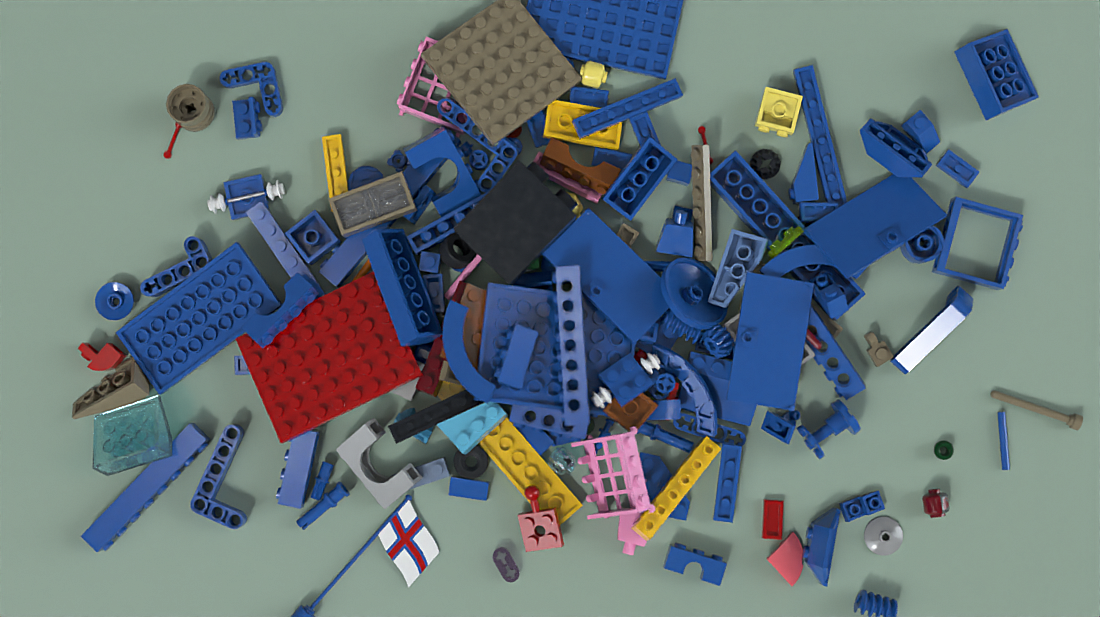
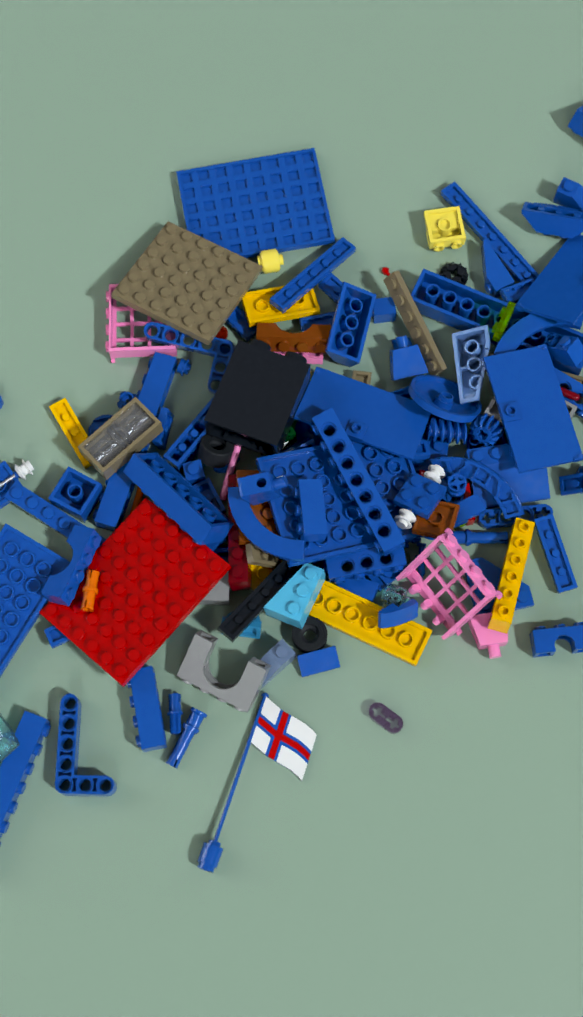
camera: 25 degrees left, 15 degrees down
(287, 342) = (90, 590): none -> orange pin
(440, 145) = (163, 363): blue arch -> none
(476, 157) = (197, 367): blue wheel -> none
(478, 318) = (261, 487): none -> blue torso
(547, 518) = (404, 655): plate -> none
(552, 480) = (394, 615): none -> blue slope
(589, 96) = (274, 280): blue plate -> none

